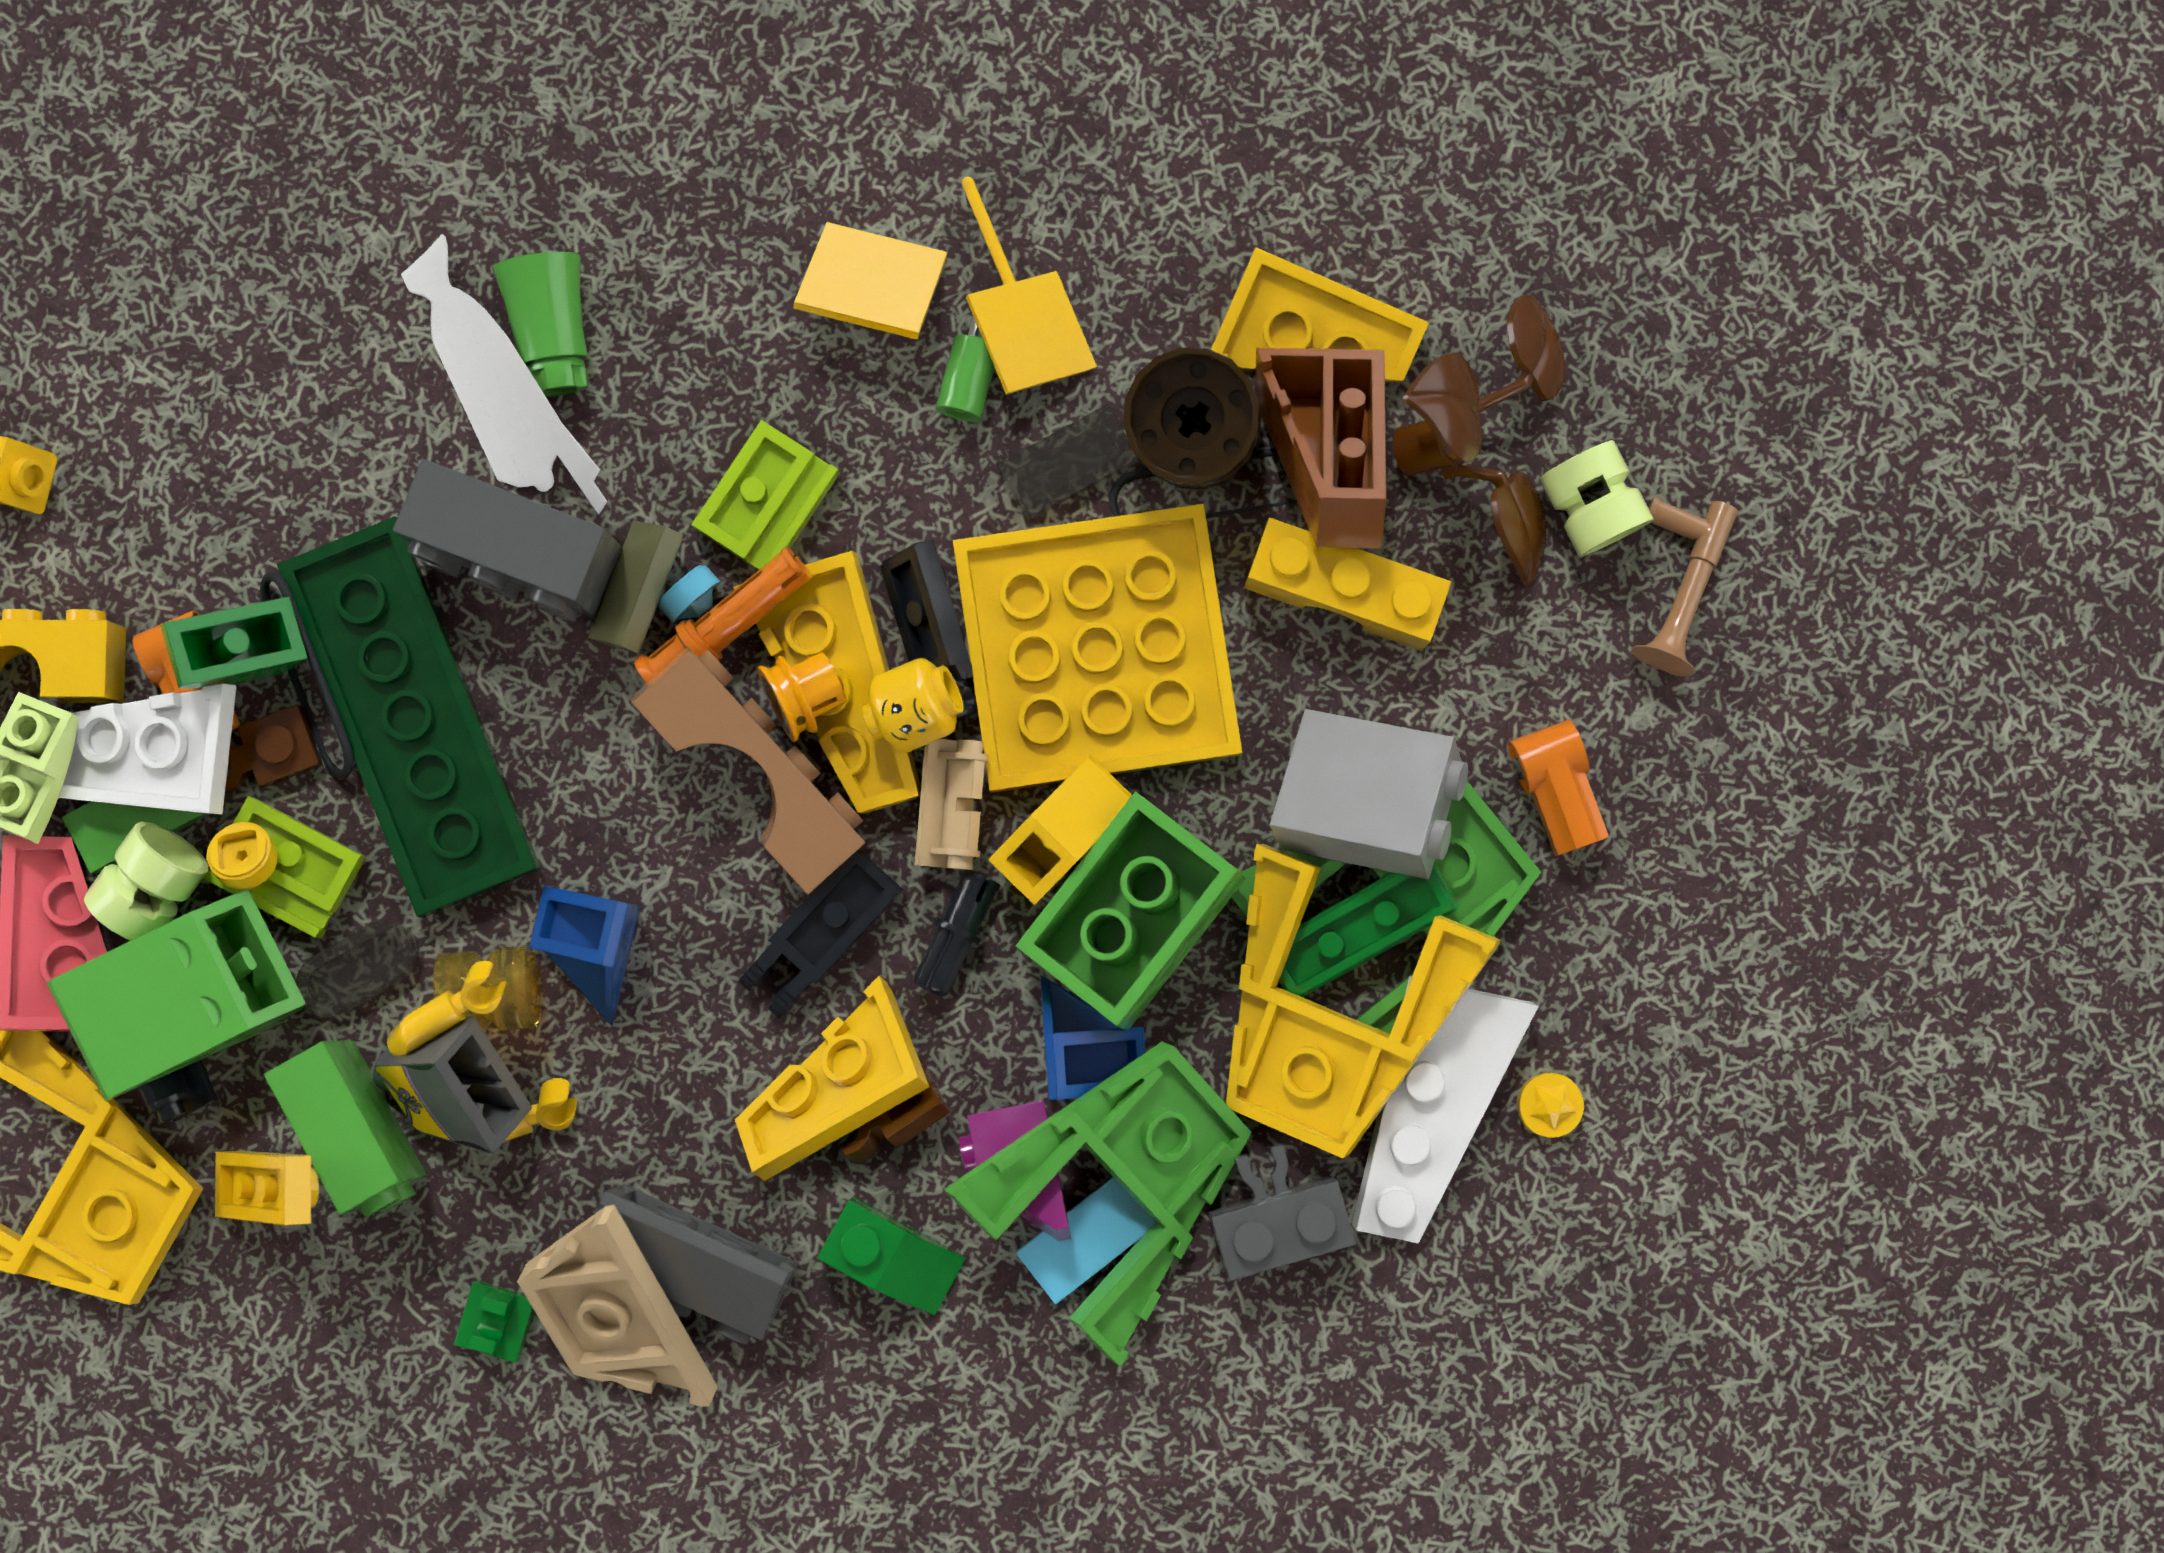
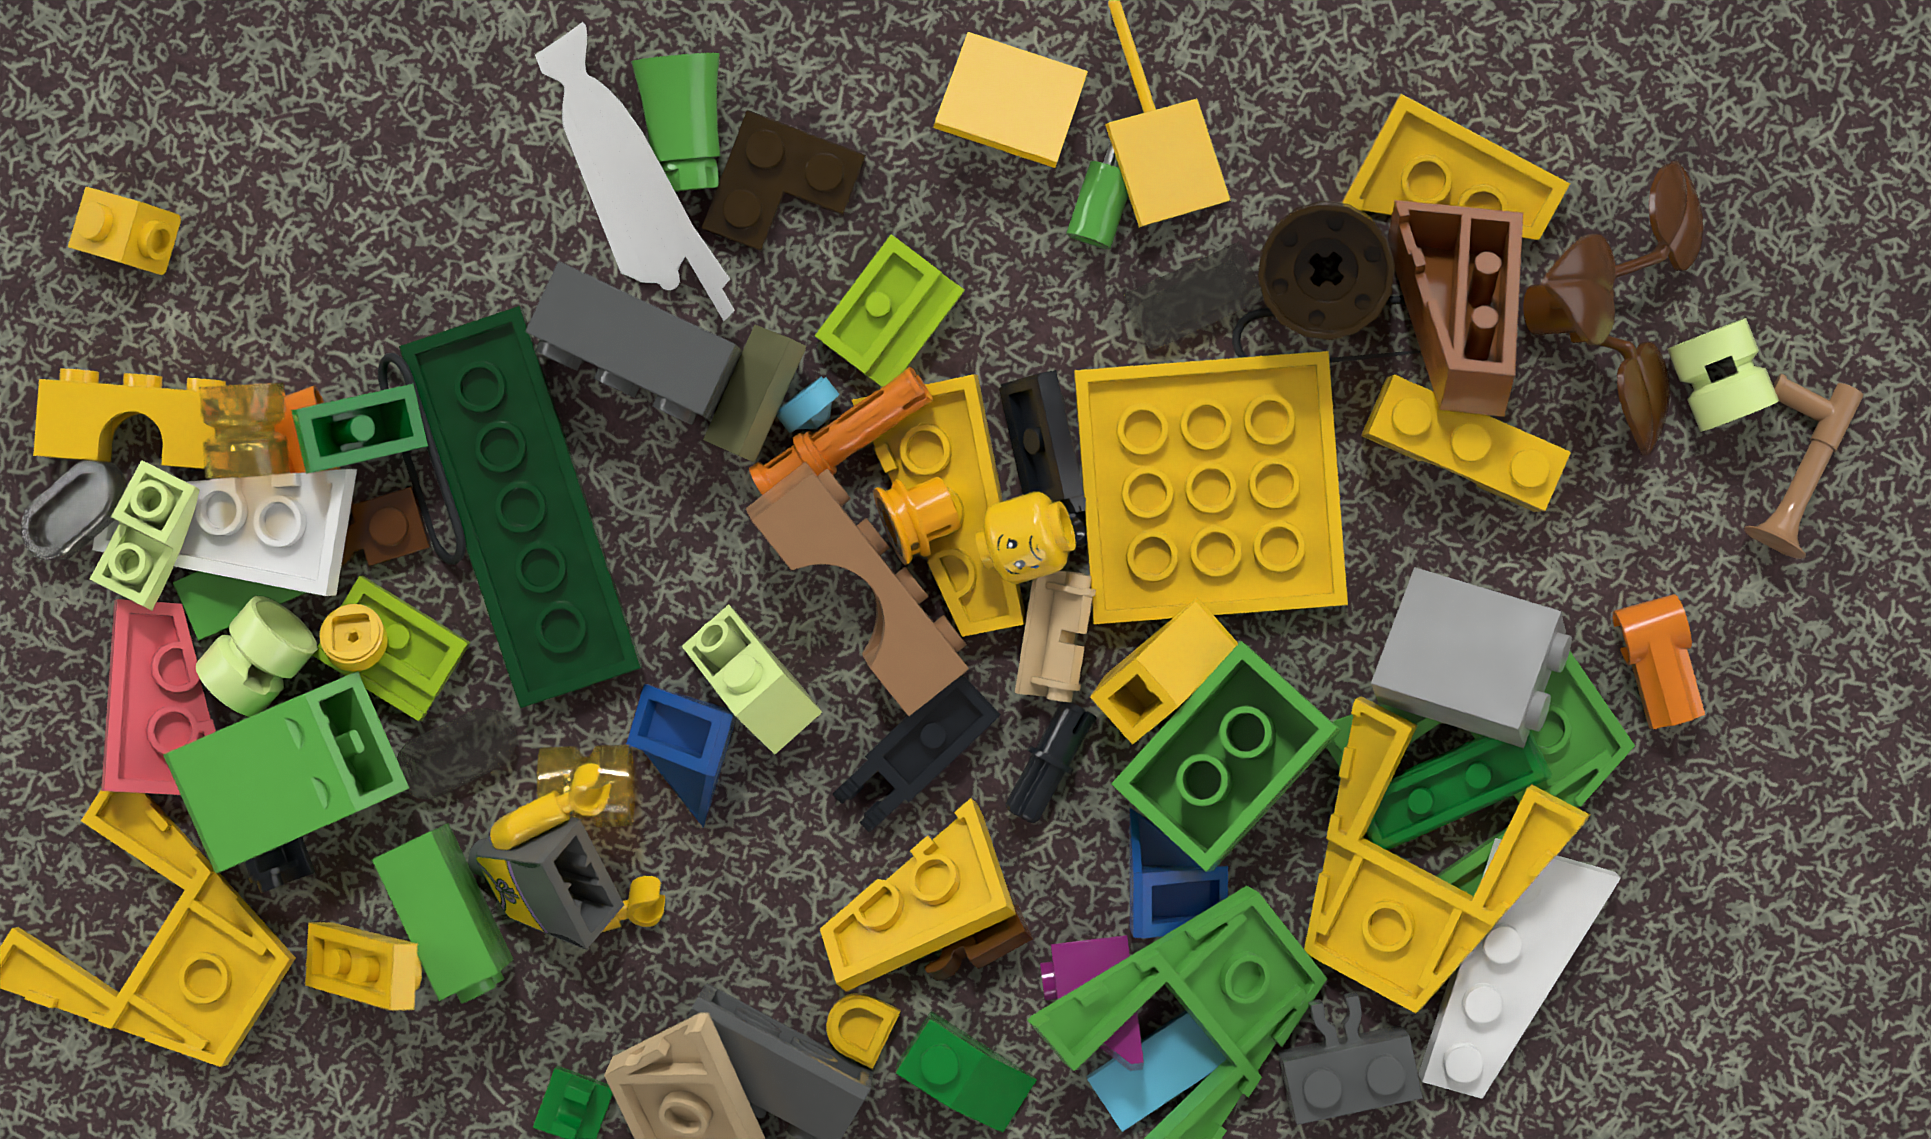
camera: 10 degrees right, 5 degrees up
(117, 651) = (244, 430): none -> clear yellow wheel
(642, 360) = (775, 161): none -> dark brown plate
(649, 872) = (751, 680): none -> yellowish green slope
(783, 1217) = (860, 1026): none -> yellow tile
(1550, 1105) = (1623, 972): yellow tile -> none

